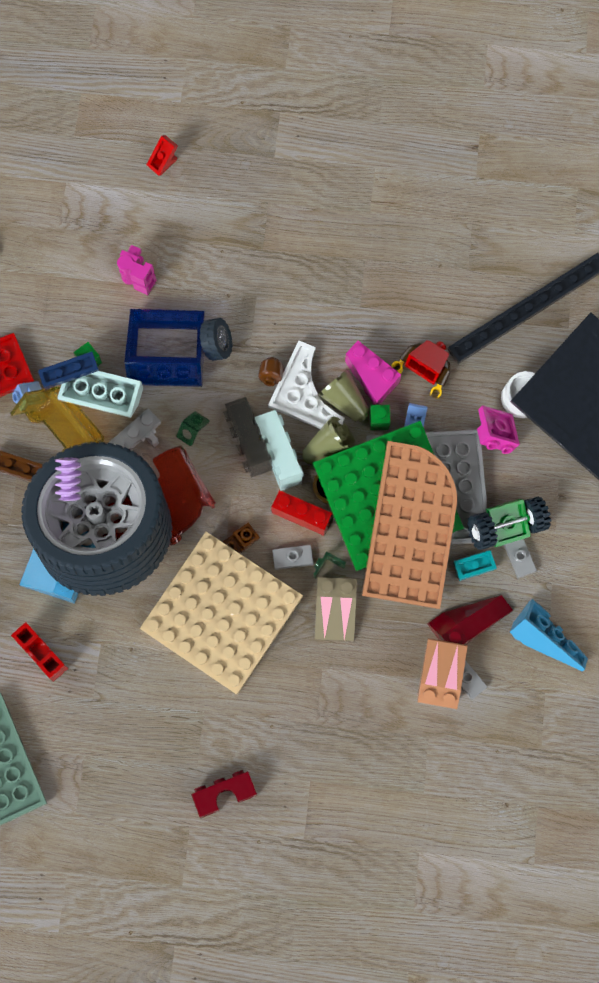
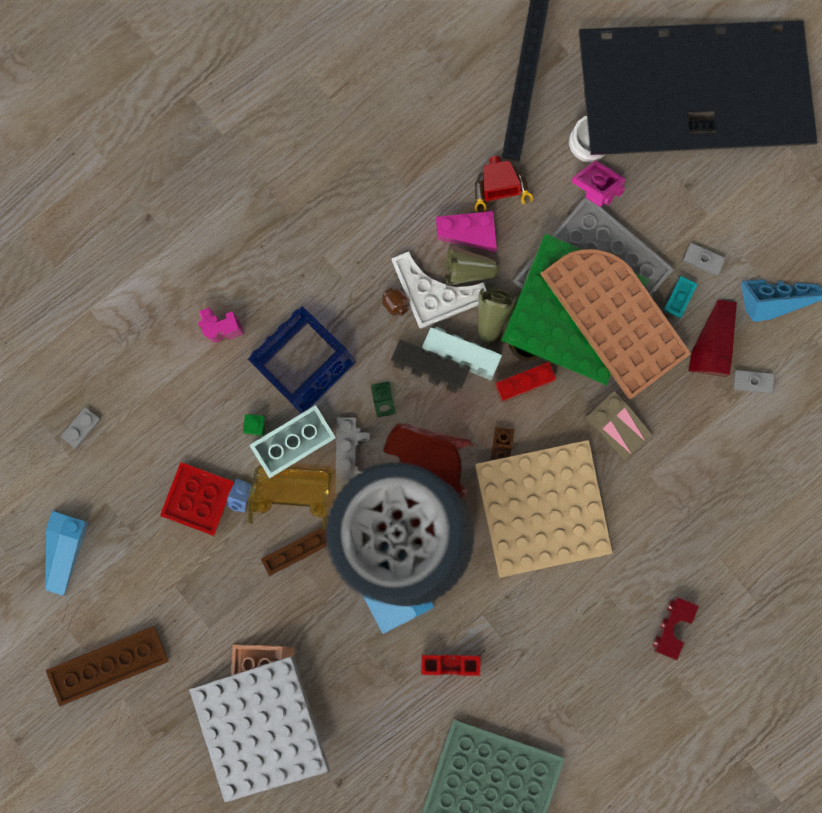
camera: 40 degrees left, 10 degrees up
(68, 370) = (257, 450): dark blue plate -> none
(68, 479) = (359, 530): lavender piece -> none
(163, 155) = (142, 218): red slope -> none
(216, 339) = (334, 318): black wheel -> none
(292, 557) = (550, 419): light grey plate -> none
(321, 561) = (574, 403): clear green bracket -> none
(379, 417) = (507, 257): green brick -> none
(415, 413) = (531, 232): medium blue bracket -> none
(442, 673) = (738, 397): nougat slope -> none
(509, 522) = (676, 244): plate -> none

